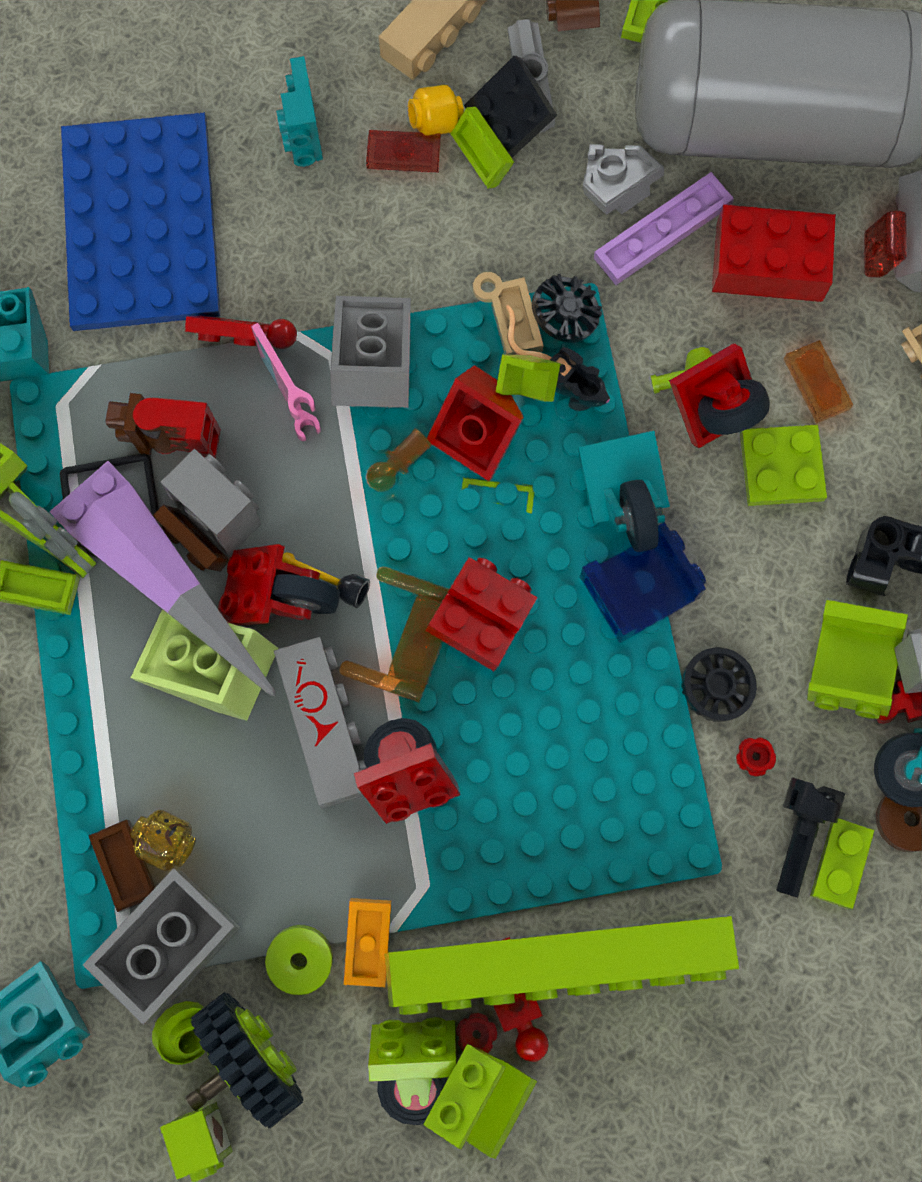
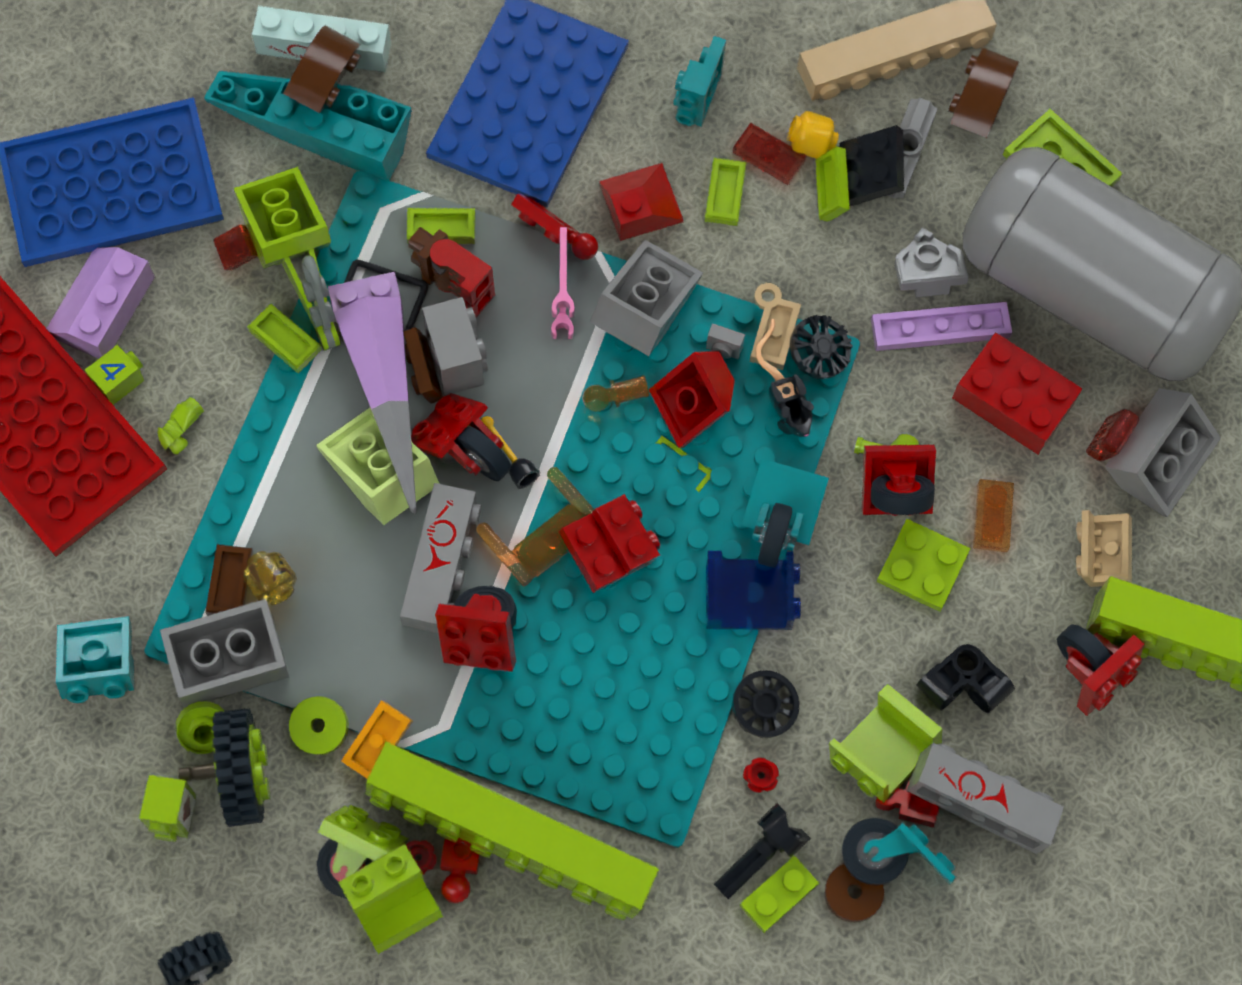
camera: 25 degrees right, 5 degrees down
(140, 378) = (455, 222): none -> lime tile
(308, 262) = (641, 201): none -> red slope
(383, 209) = (725, 191): none -> lime tile
(472, 352) = (725, 341): none -> light grey plate
(528, 377) = (753, 381): lime panel -> none

